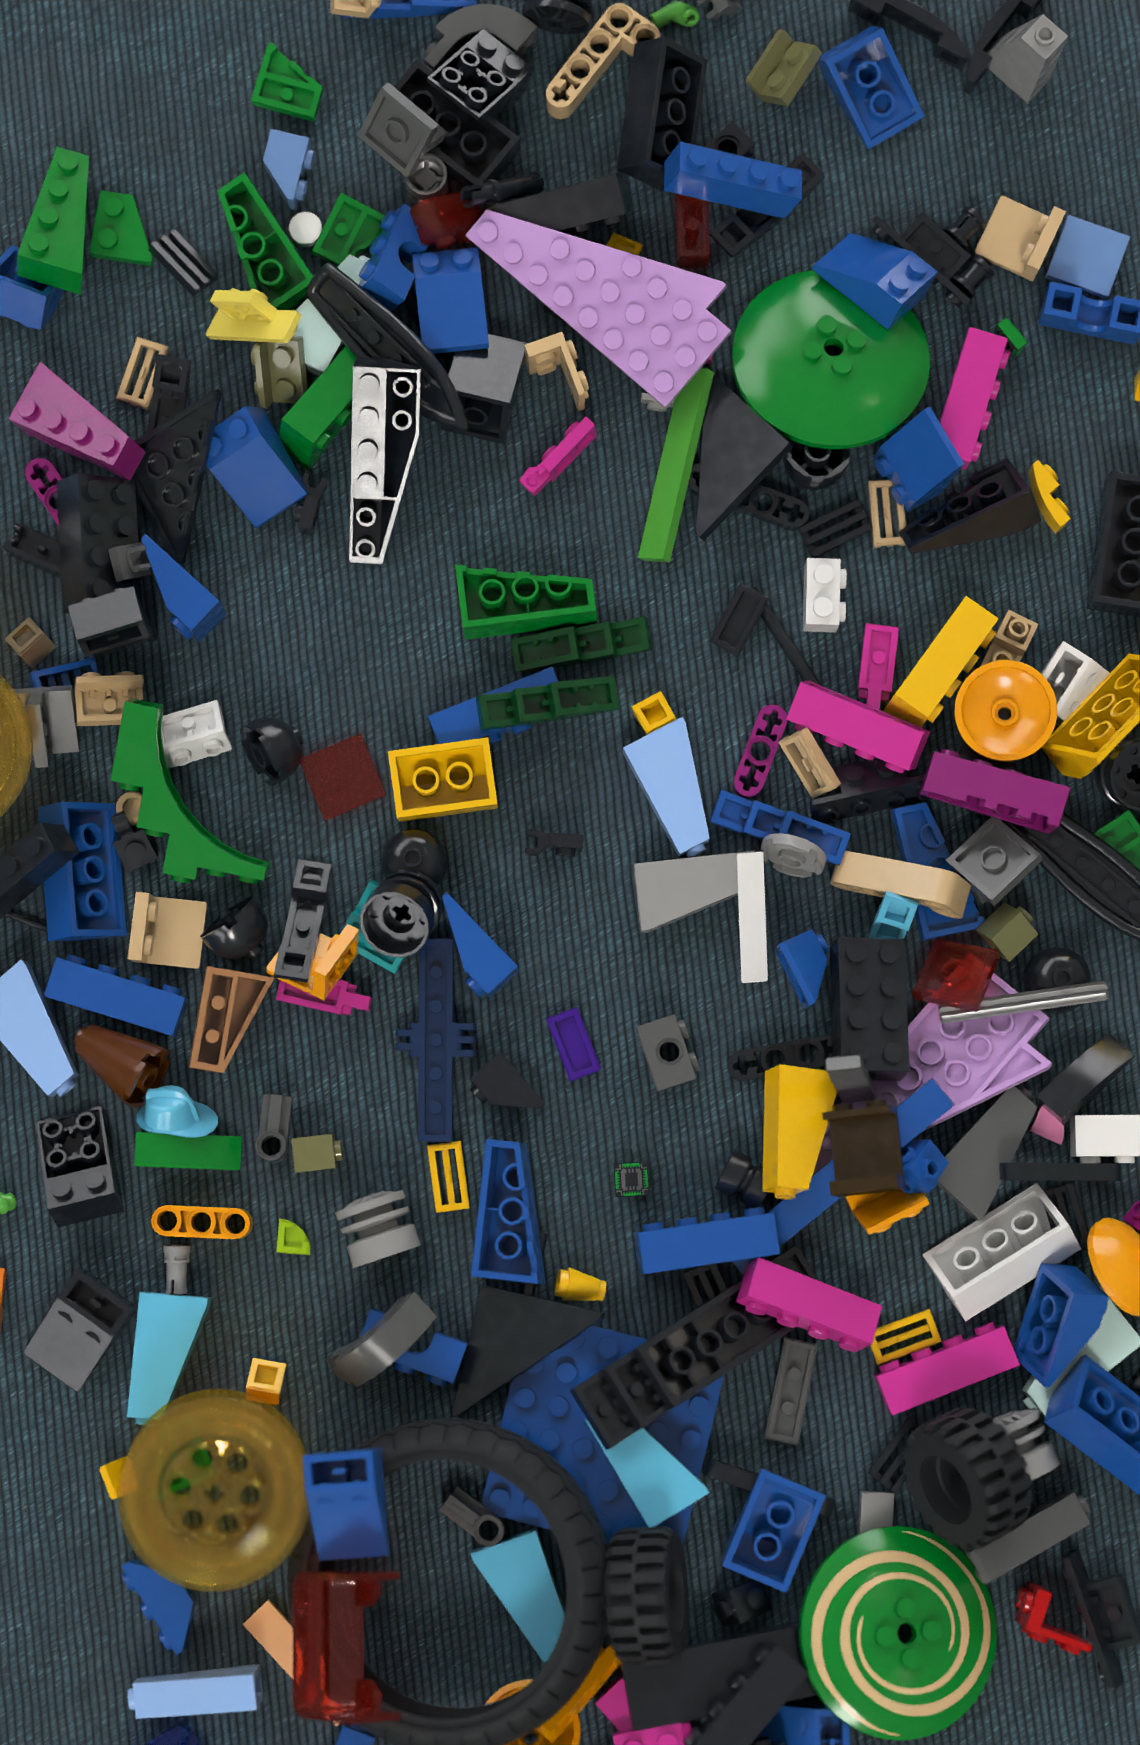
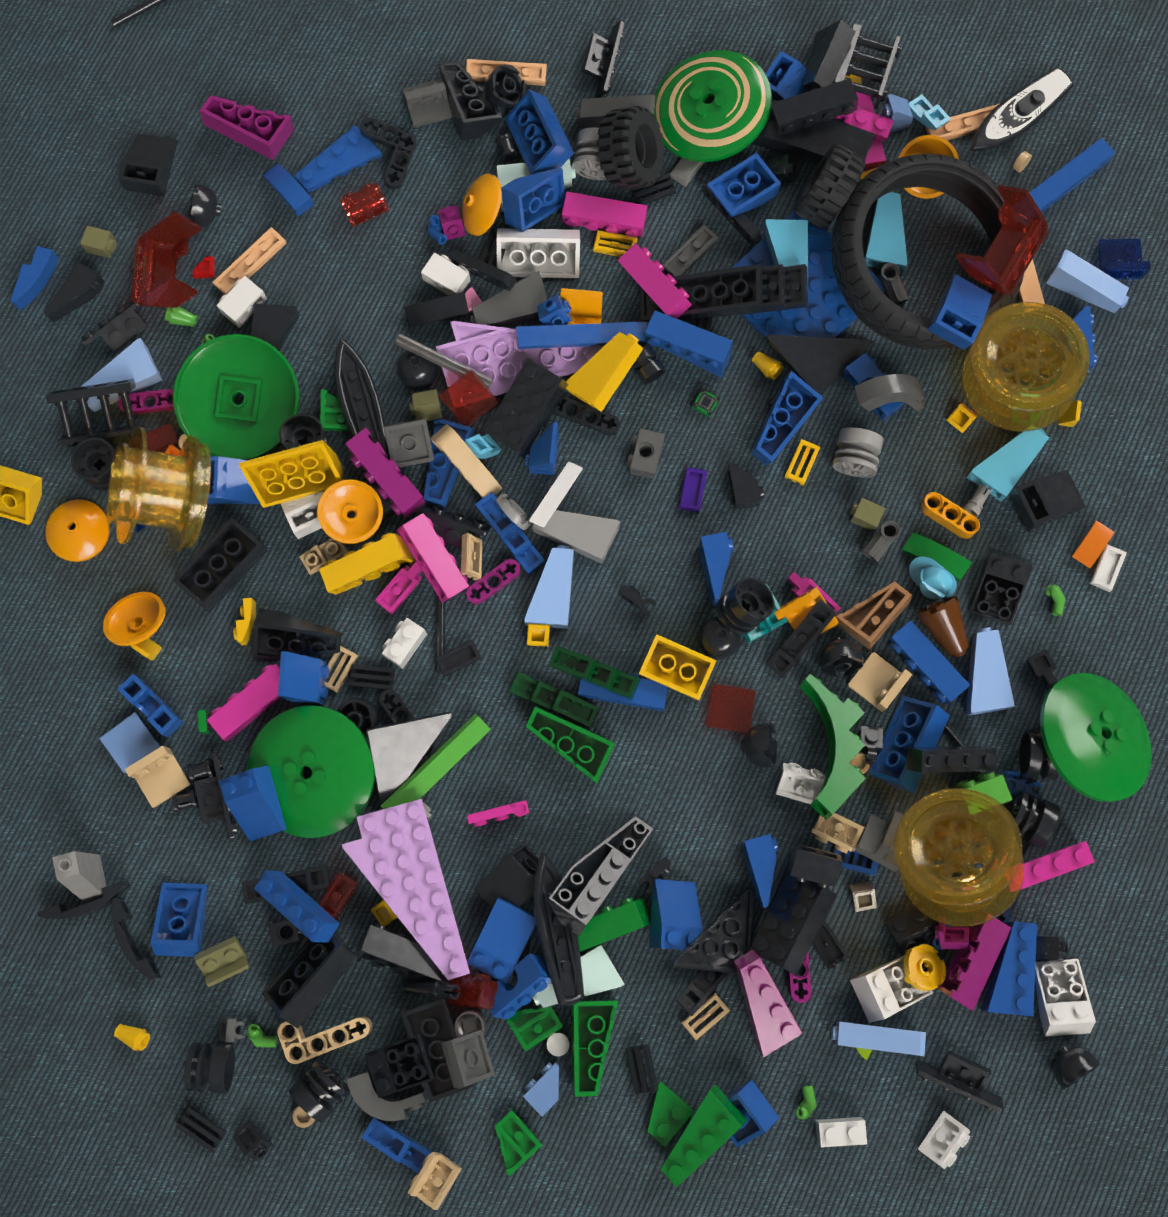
camera: 145 degrees left, 5 degrees down
(129, 561) = (781, 898): dark grey tile -> none
(250, 318) = (625, 999): light yellow bracket -> none
(279, 371) = (626, 963): olive bracket -> none
(292, 1239) = (905, 480): lime tile -> none
(436, 1041) = (767, 533): dark blue hinge -> none
(550, 351) = (468, 873): tan bracket -> none
(851, 1079) = (560, 372): dark grey tile -> none
(865, 1149) = (577, 332): dark brown panel -> none
(1031, 1610) = (638, 68): red bracket -> none

